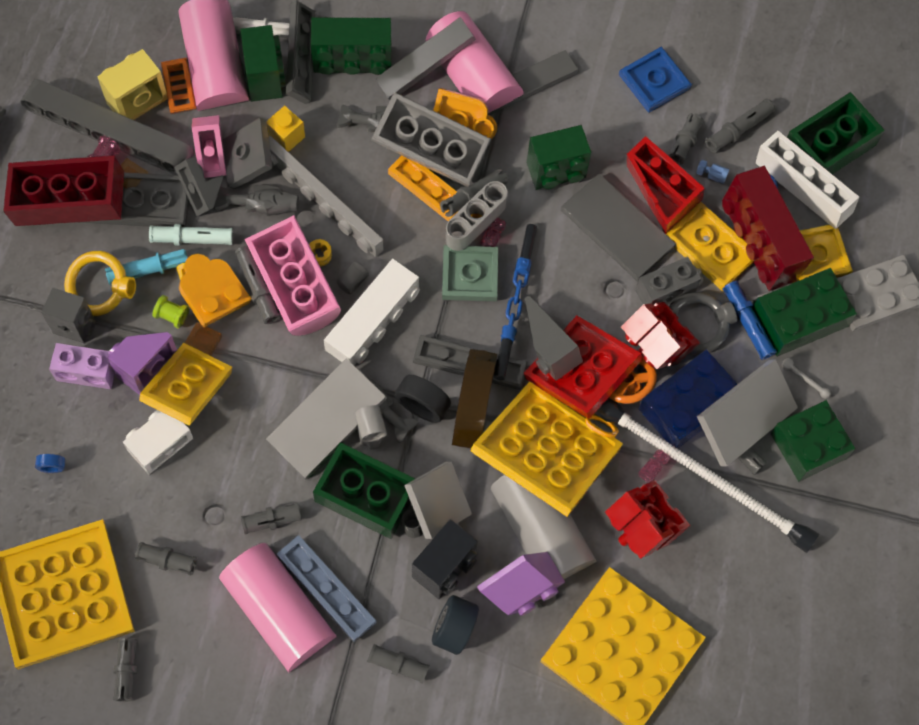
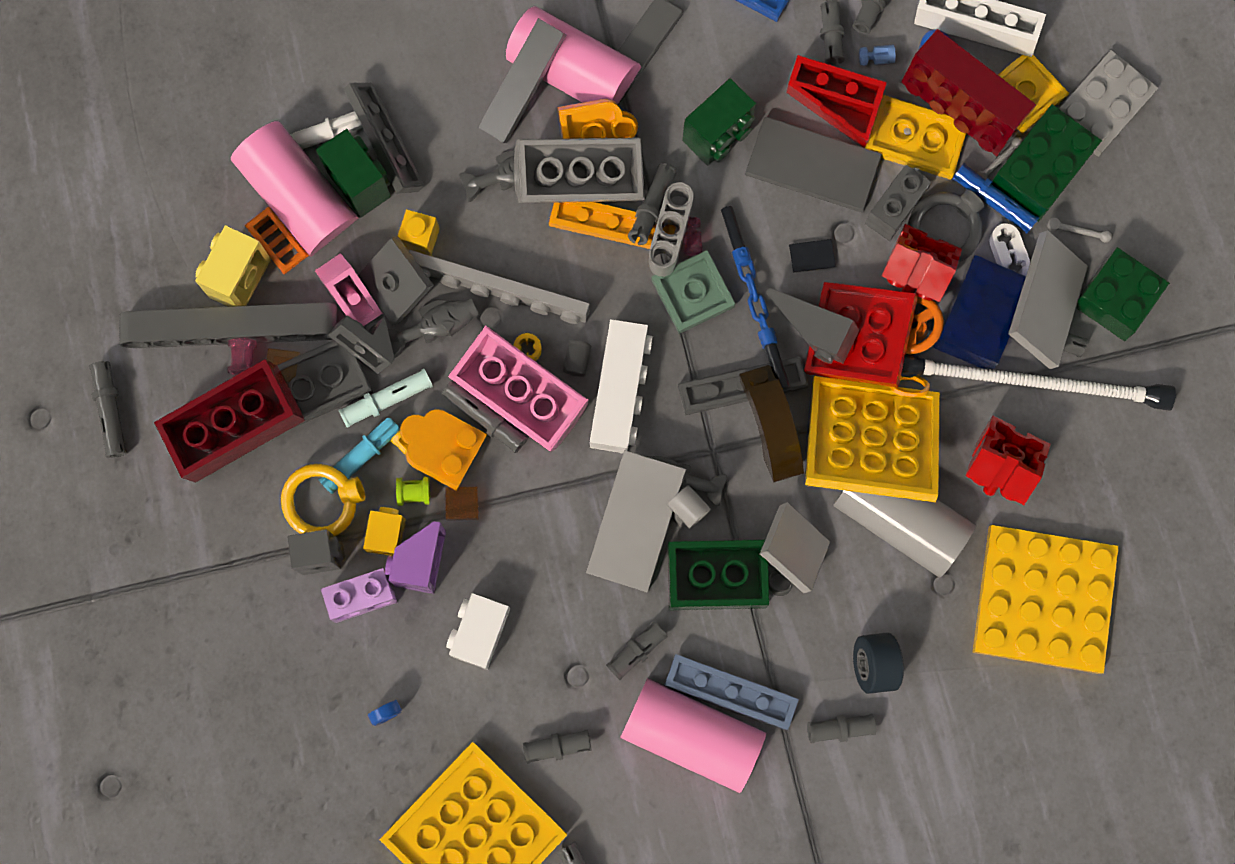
camera: 25 degrees left, 10 degrees up
(130, 324) = (384, 531): none -> yellow brick
(186, 384) = (476, 560): yellow plate -> none
(351, 45) = (437, 105): dark green brick -> none
(423, 398) = (722, 451): black tyre -> none
(445, 559) = (835, 604): black brick -> none
(523, 583) = (925, 588): medium lavender slope -> none
(579, 293) = (812, 255): none -> black piece
(653, 466) = (980, 401): clear pink piece -> none
(732, 364) = (1016, 248): none -> white beam

